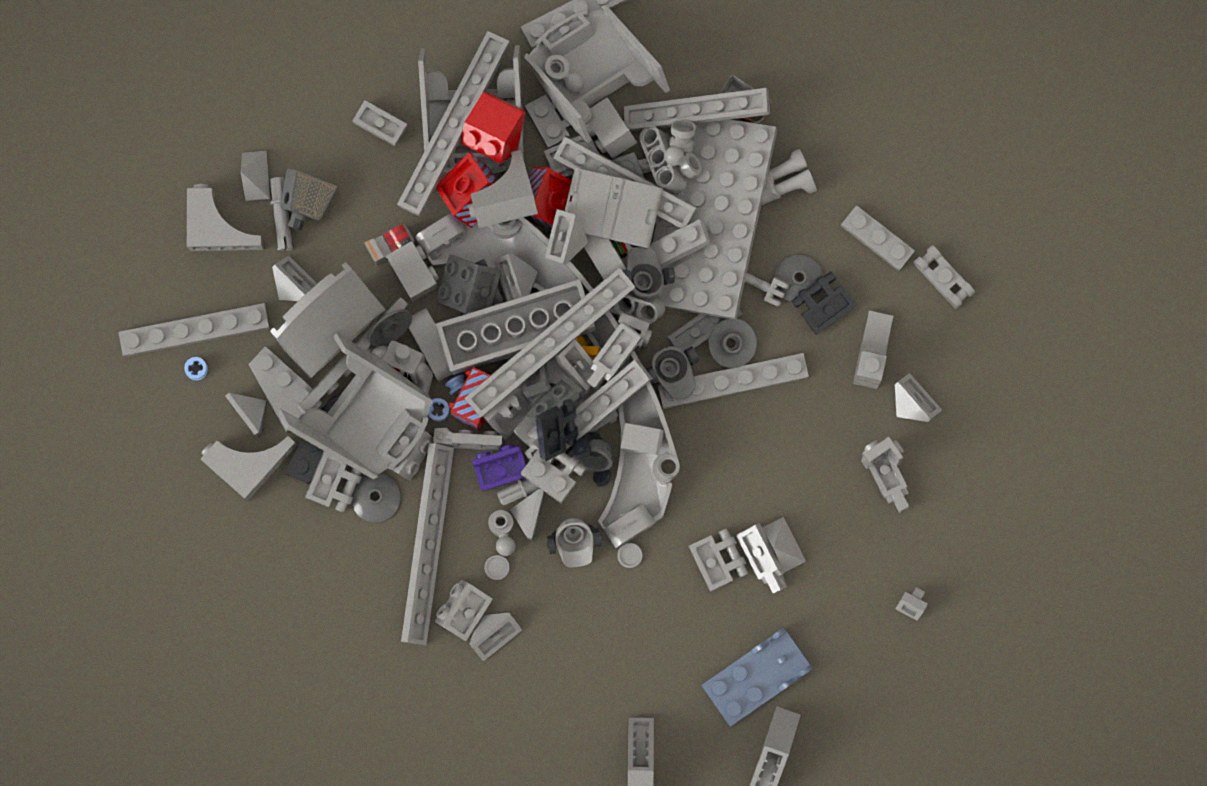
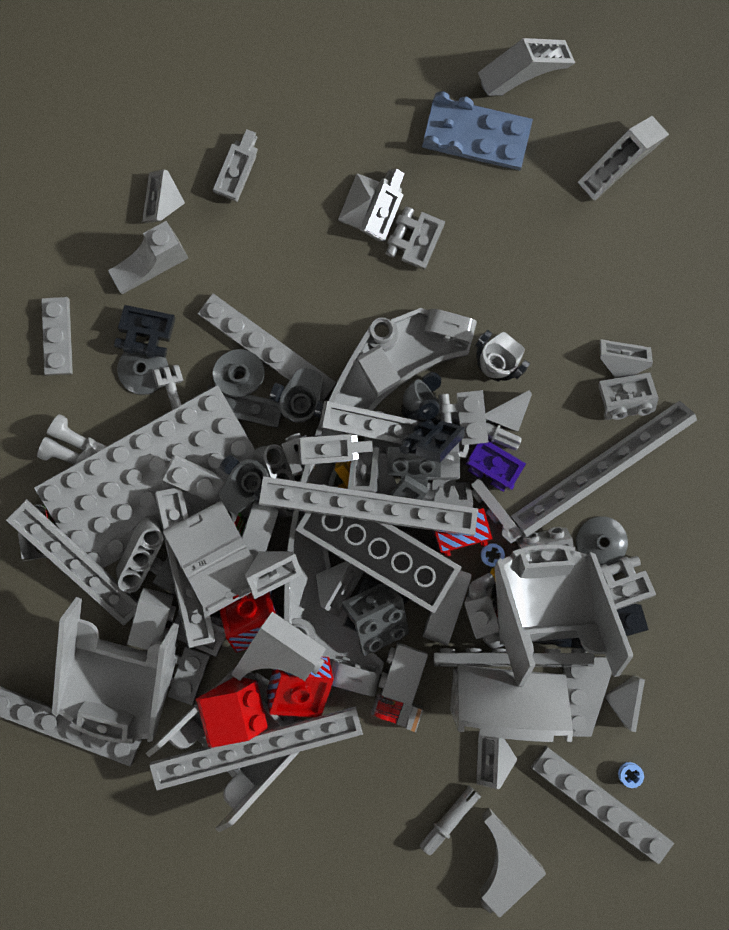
camera: 130 degrees left, 5 degrees up
(246, 470) = (679, 665): light grey arch -> none
(255, 176) = (437, 870): light grey slope -> none
(305, 197) = (421, 813): dark grey torso -> none
(380, 123) = (307, 808): light grey plate -> none
(390, 327) = (467, 649): dark grey dish -> none
(456, 384) = (460, 557): light blue bush -> none
(496, 567) = (571, 401): light grey piece -> none
(505, 545) = (549, 409): light grey plate -> none
(573, 81) = (137, 682): light grey plate -> none
(629, 555) = (471, 307): light grey piece -> none
(682, 135) = (104, 556): light grey wheel -> none
(687, 163) = (125, 532): light grey plate -> none
(876, 451) = (223, 179): light grey bracket -> none
(912, 604) = (318, 64): light grey tile -> none
(944, 277) = (43, 259): light grey plate -> none

